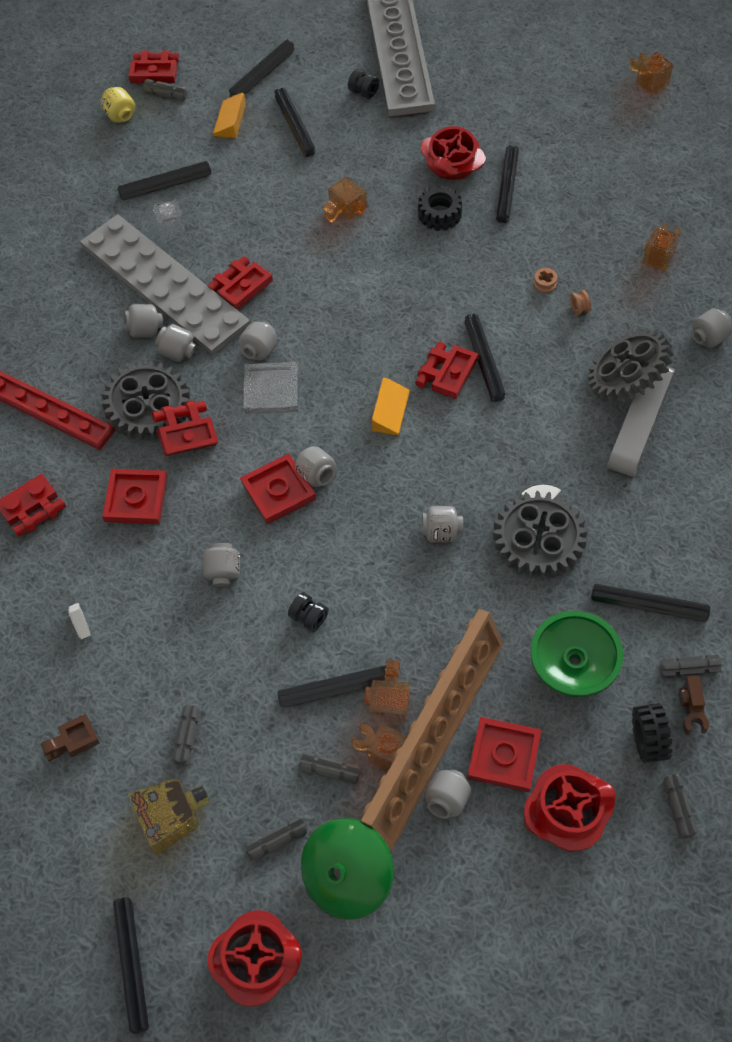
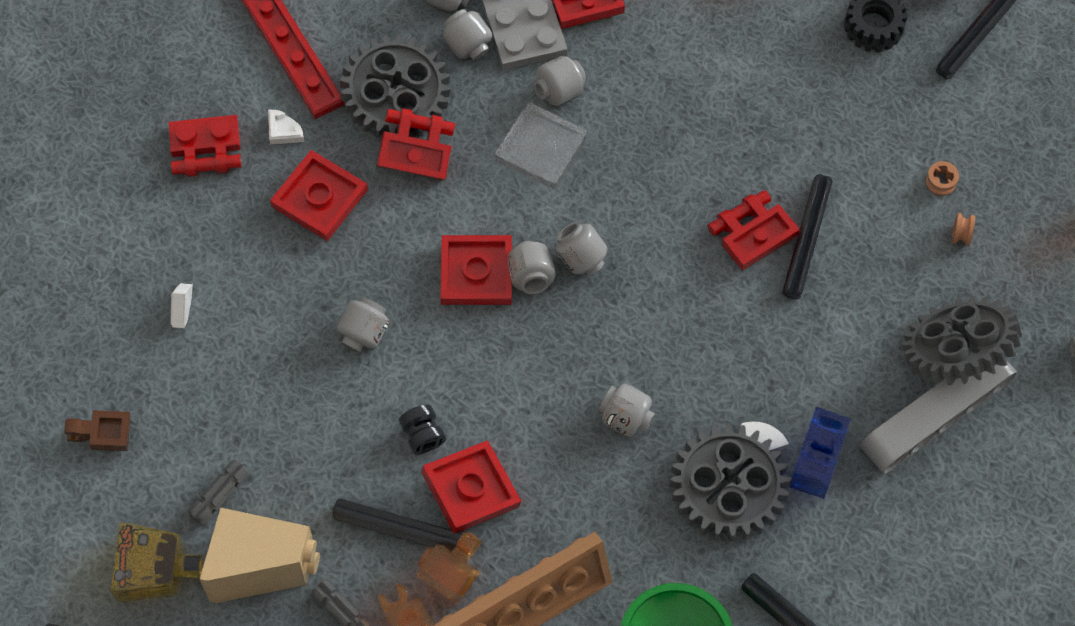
camera: 25 degrees right, 5 degrees up
(81, 466) = (283, 128): none -> white tile
(247, 760) = (256, 556): none -> tan slope
(342, 437) = (581, 248): none -> light grey head
(367, 631) = (470, 486): none -> red plate
(390, 407) = (659, 240): light orange slope -> none
(587, 482) = (820, 452): none -> clear blue brick

